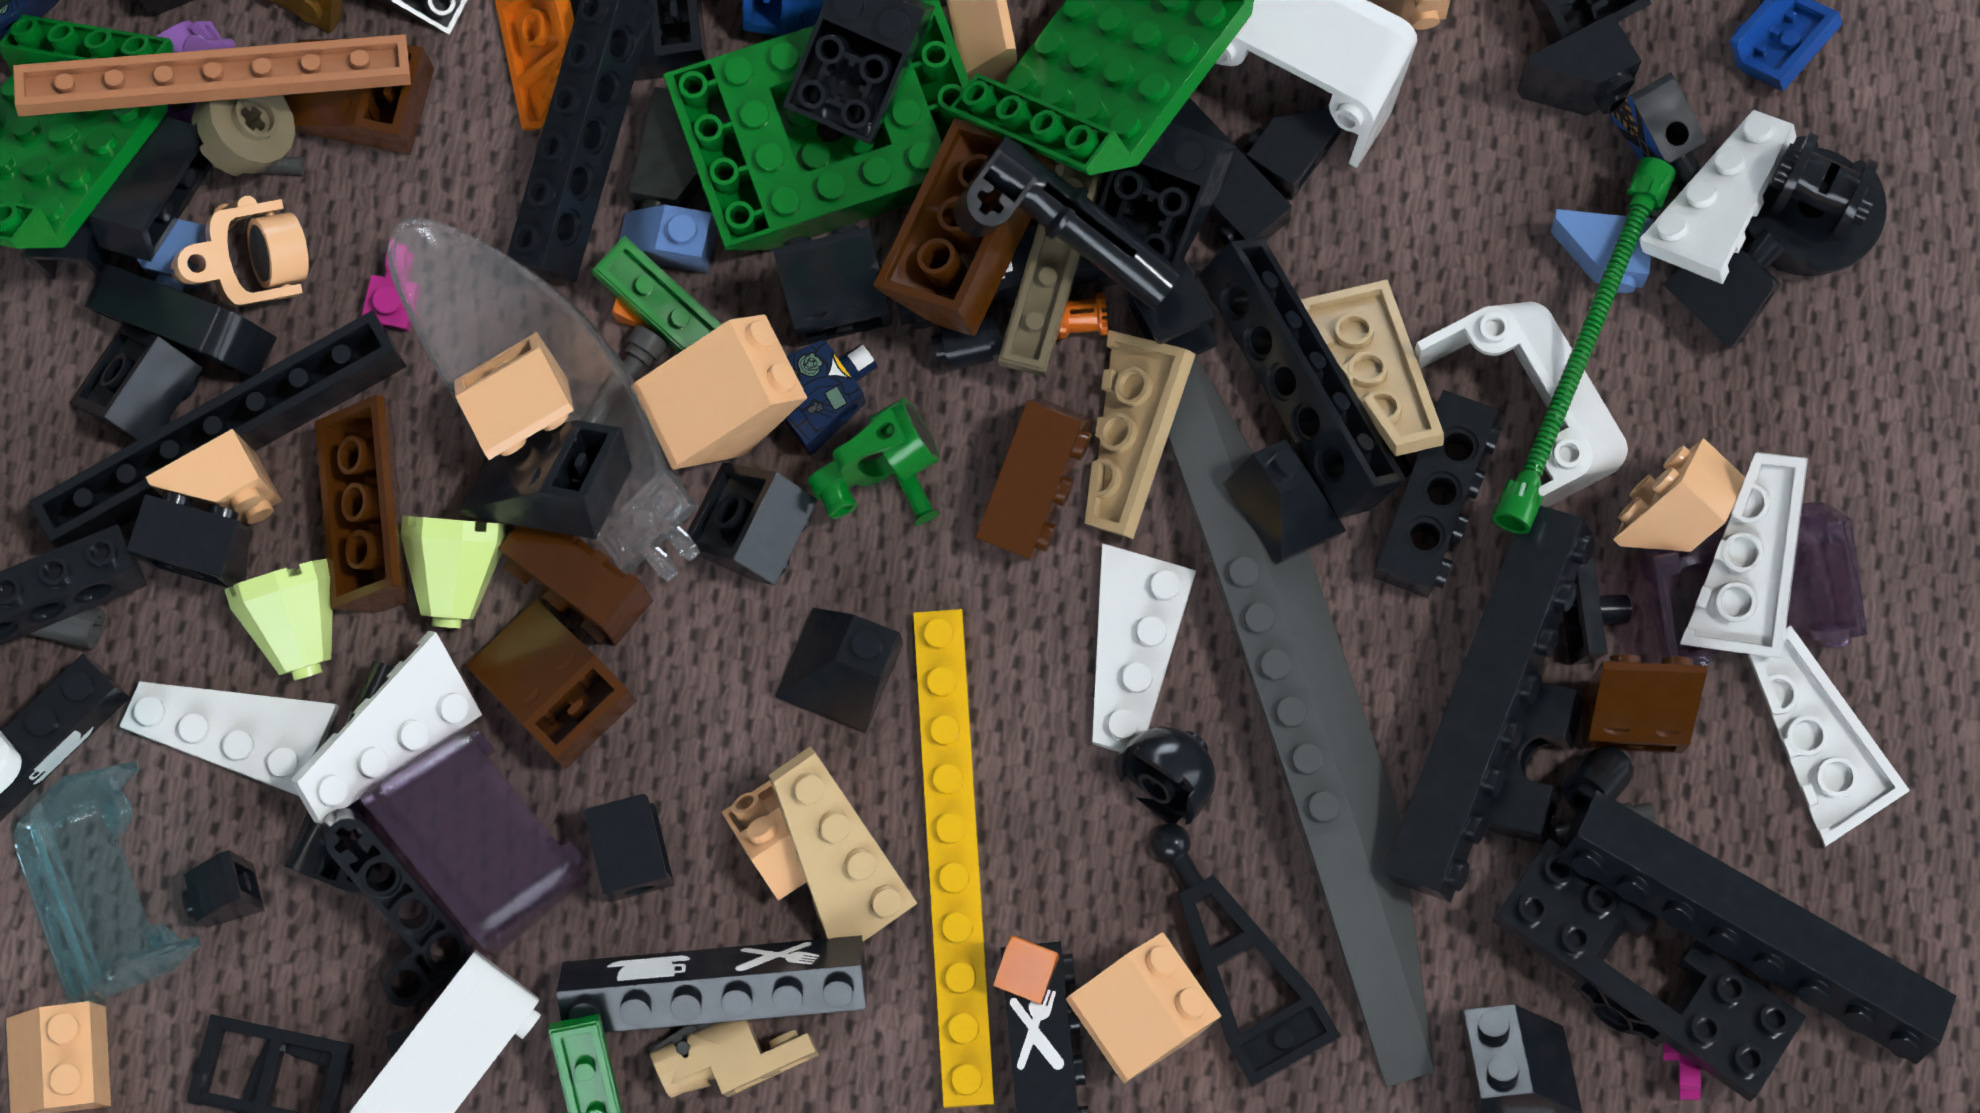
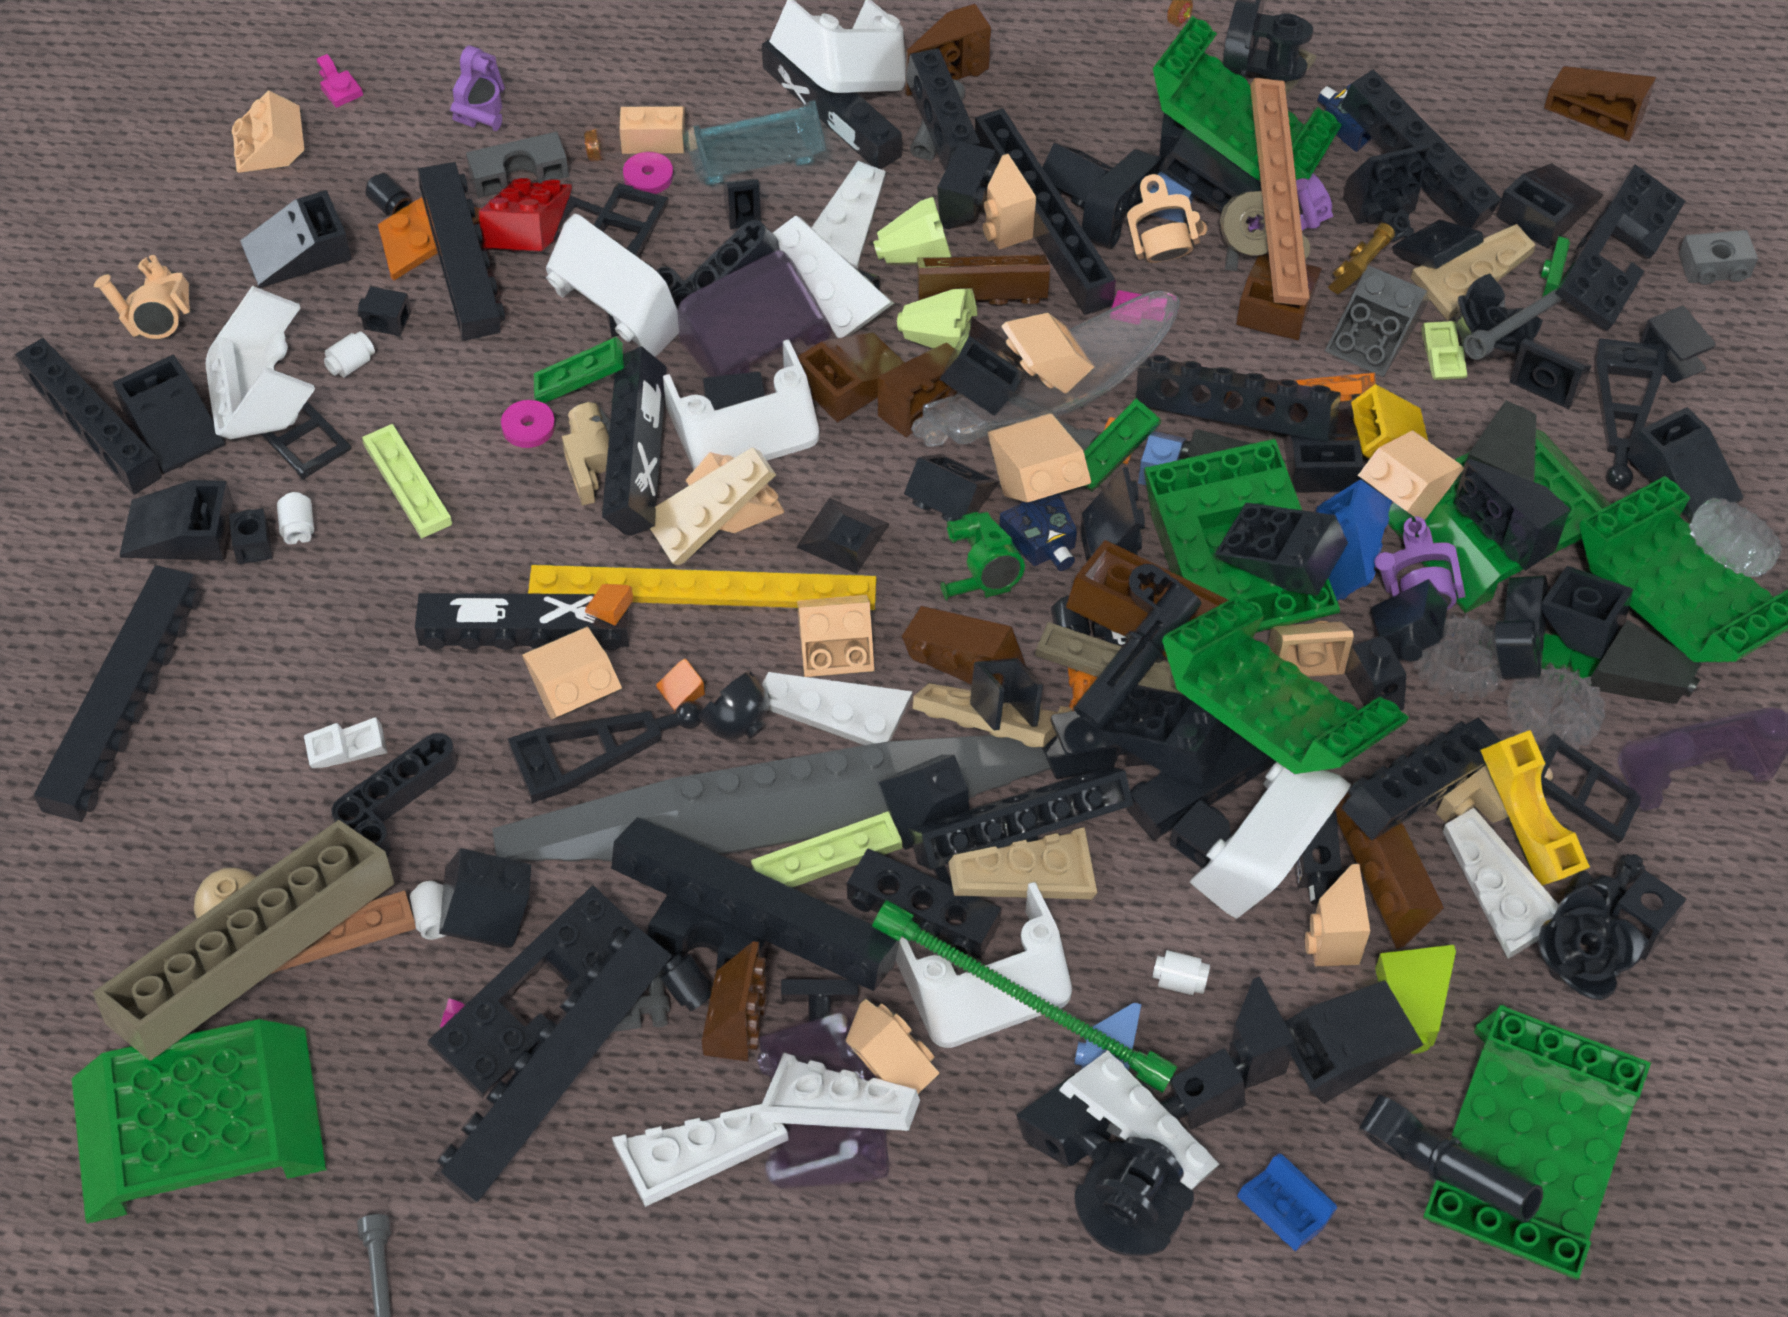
camera: 85 degrees right, 20 degrees down
(134, 1050) = (648, 162): none -> dark pink piece
(707, 862) = (771, 423): none -> white windscreen
(1021, 655) = (836, 635): none -> light nougat slope
(1113, 387) = (1018, 688): none -> black piece
(1127, 861) = (681, 685): none -> slope
(1374, 627) = (830, 851): none -> yellowish green plate
(1489, 170) = (1181, 973): none -> white brick

